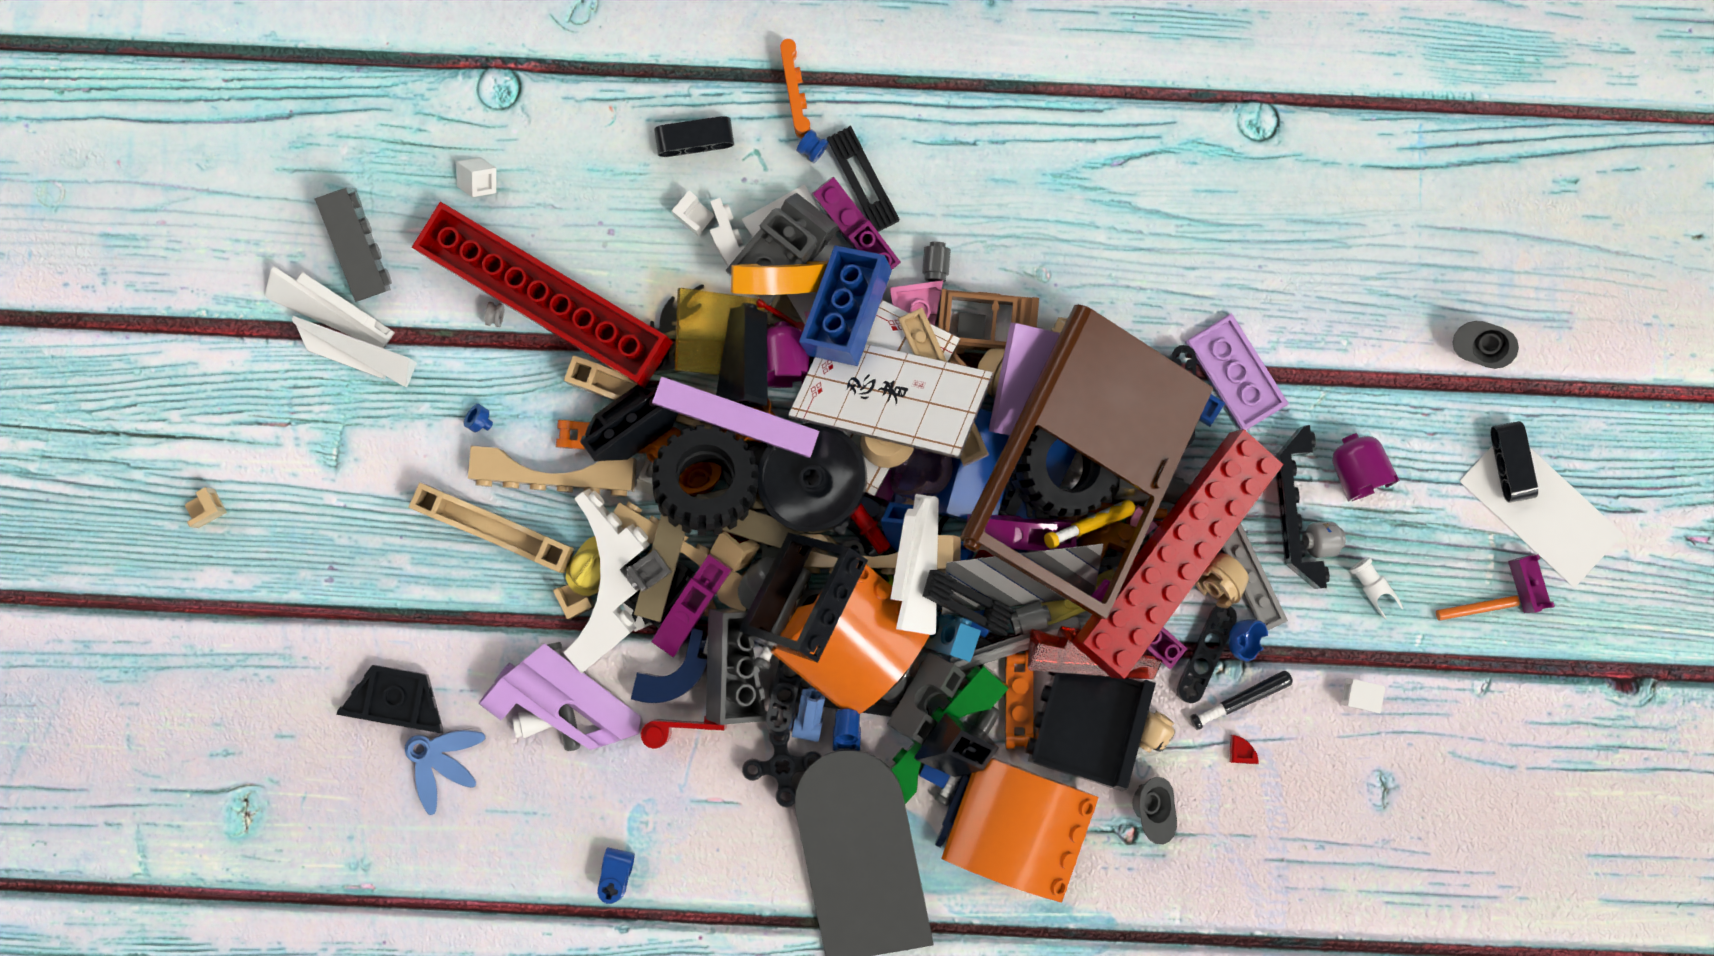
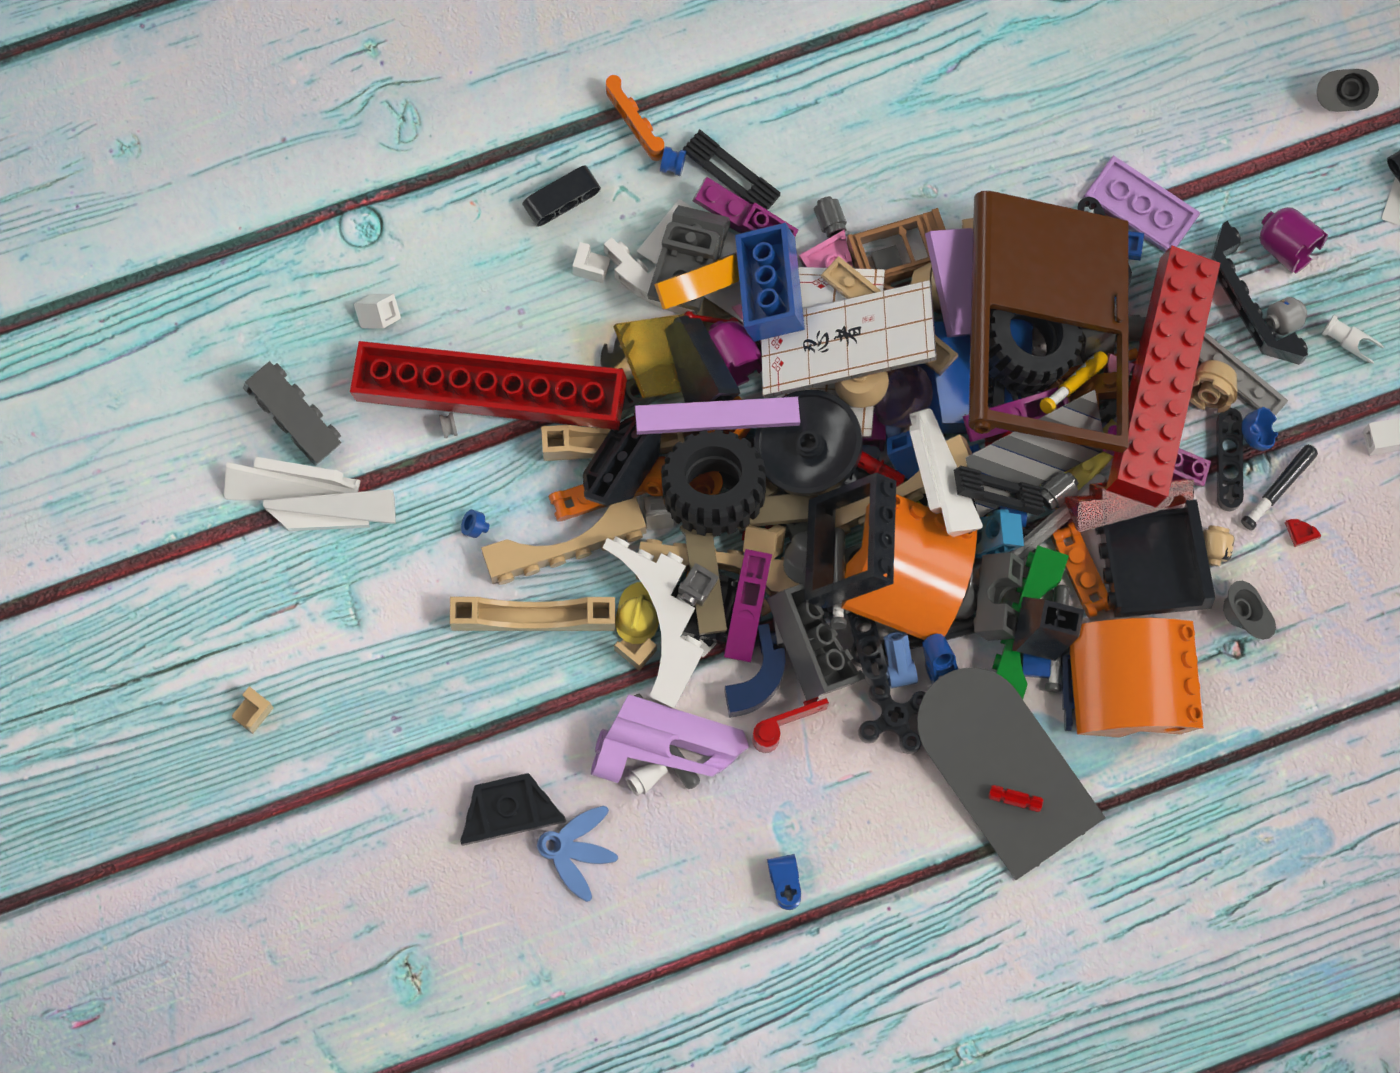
camera: 25 degrees left, 10 degrees down
(857, 893) = (1015, 798): none -> red axle

